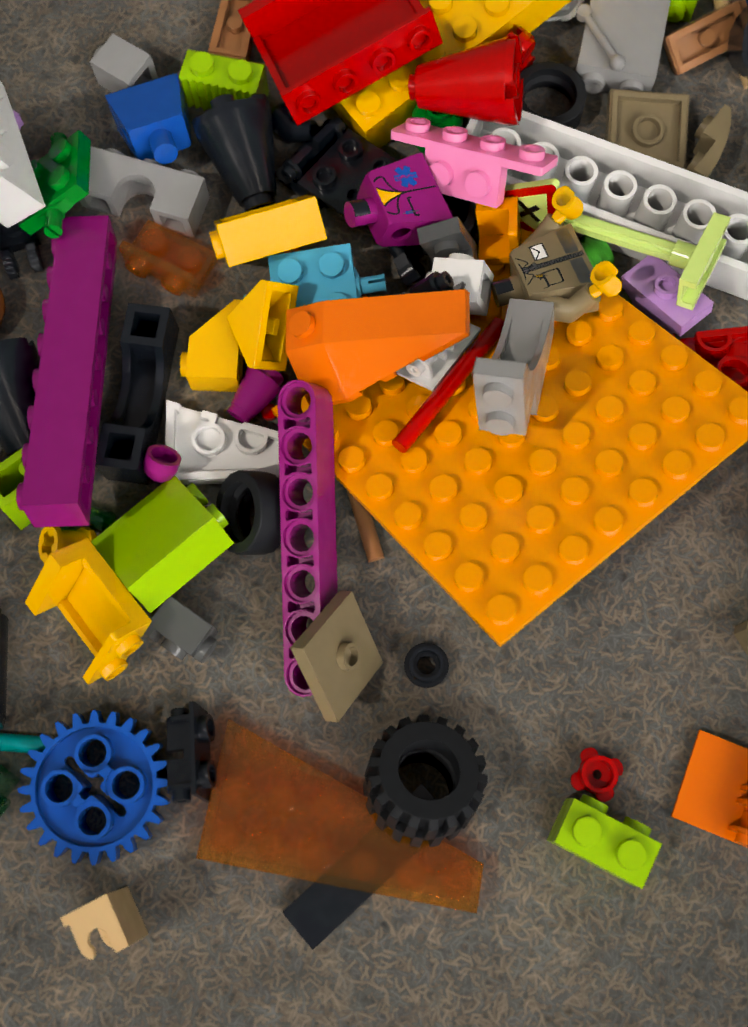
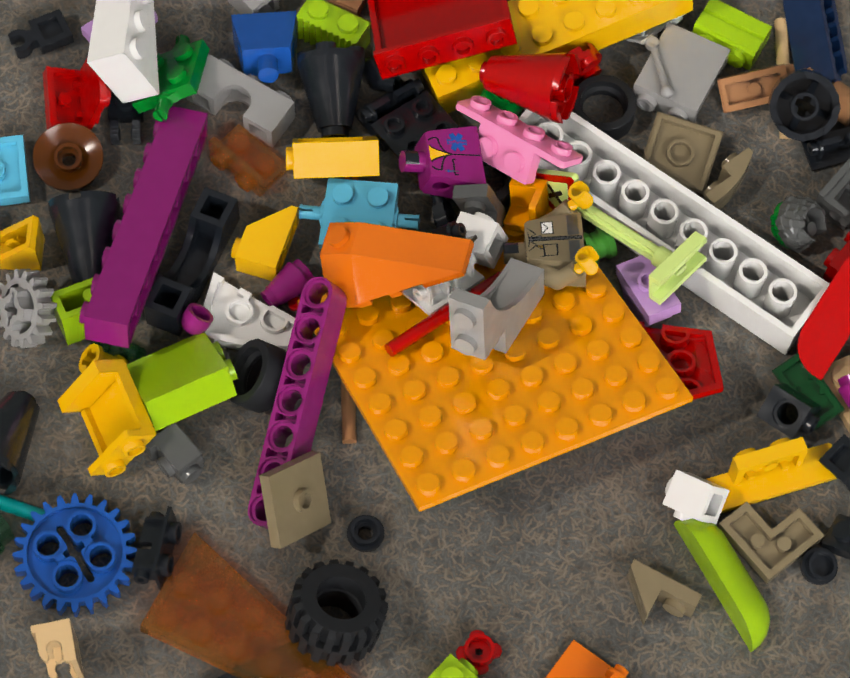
camera: 10 degrees right, 10 degrees down
(261, 324) = (306, 229): yellow slope -> none

